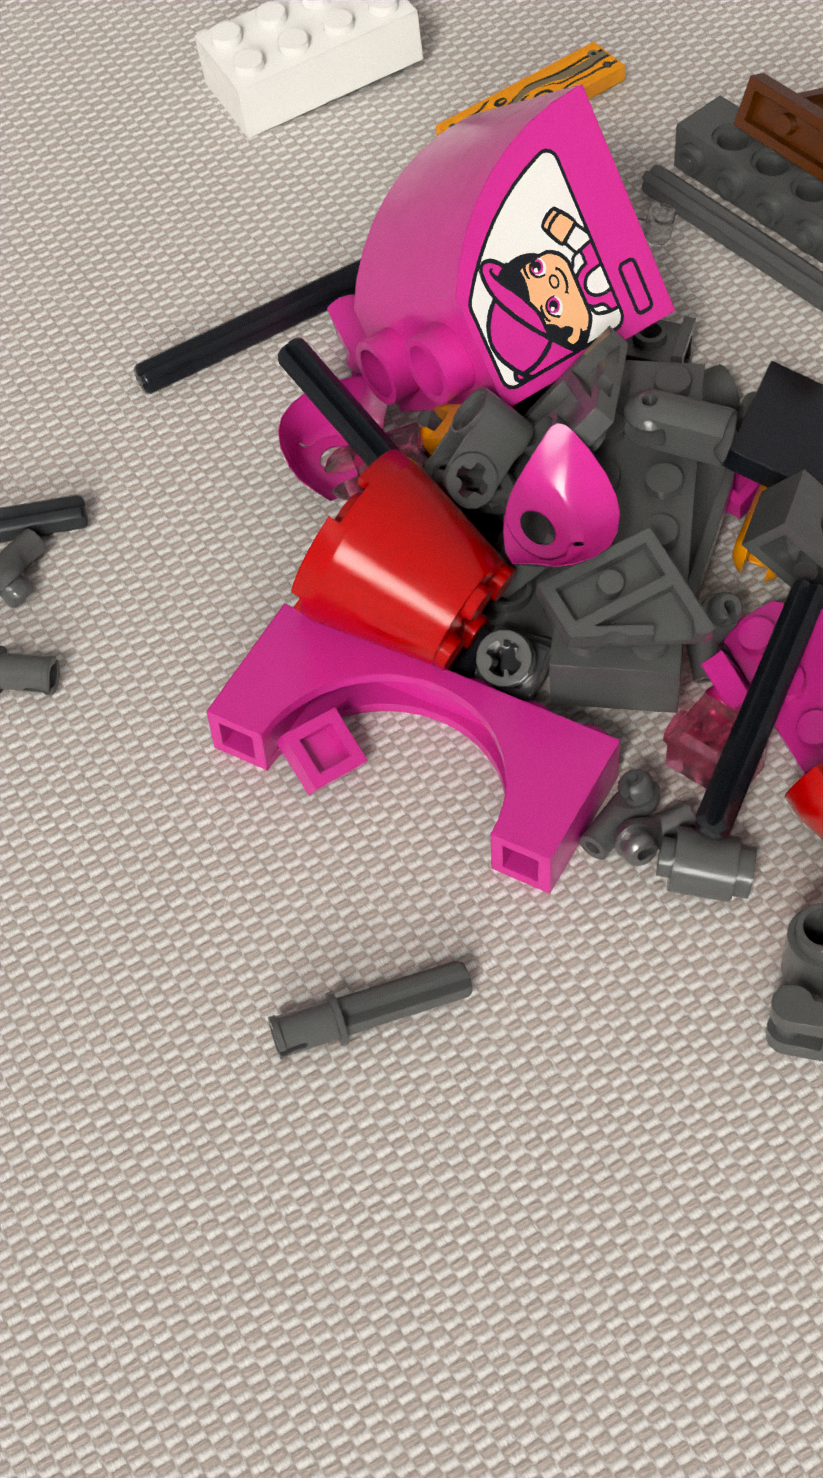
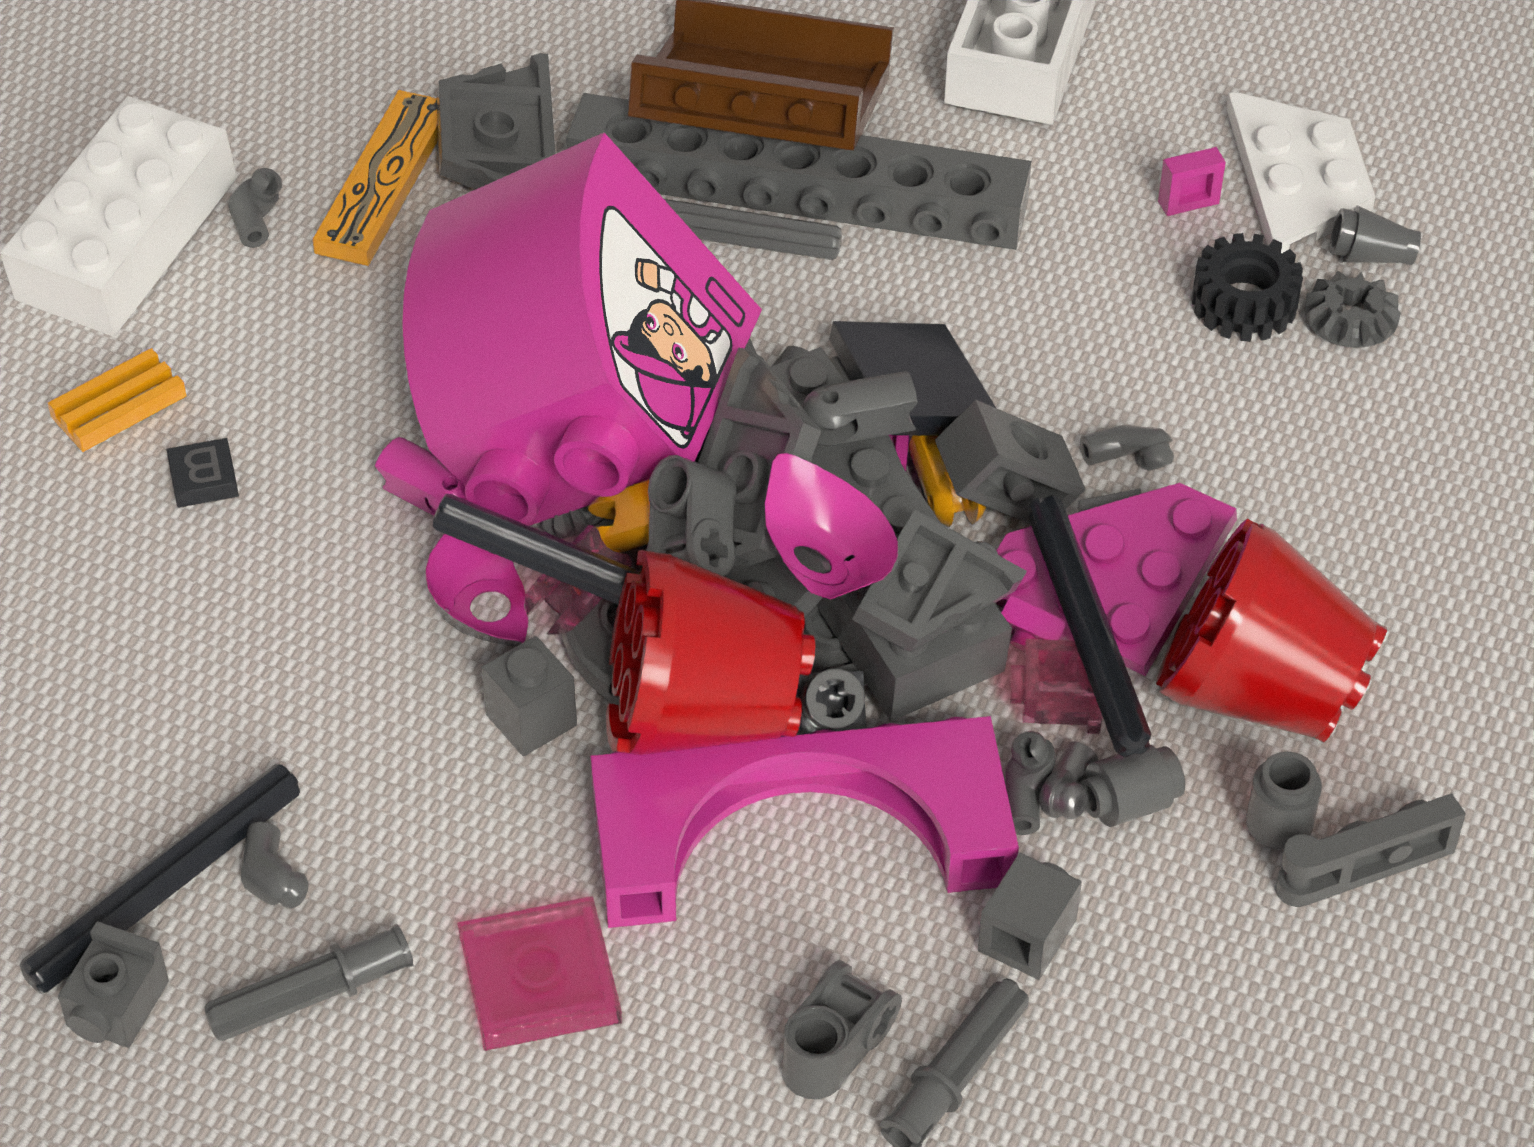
camera: 40 degrees left, 5 degrees down
(130, 752) = (539, 973): none -> clear pink tile
(206, 182) = (112, 394): none -> light orange tile
(218, 261) = (202, 472): none -> black tile
(245, 330) = (300, 520): black axle -> none
(286, 531) = (529, 695): none -> dark grey brick
(301, 921) = (840, 1020): none -> dark grey piece
(321, 751) = (726, 872): dark pink plate -> none
(417, 82) = (251, 203): none -> dark grey arm
(527, 922) = (1029, 915): none -> dark grey brick
(642, 98) = (494, 122): none -> dark grey wing

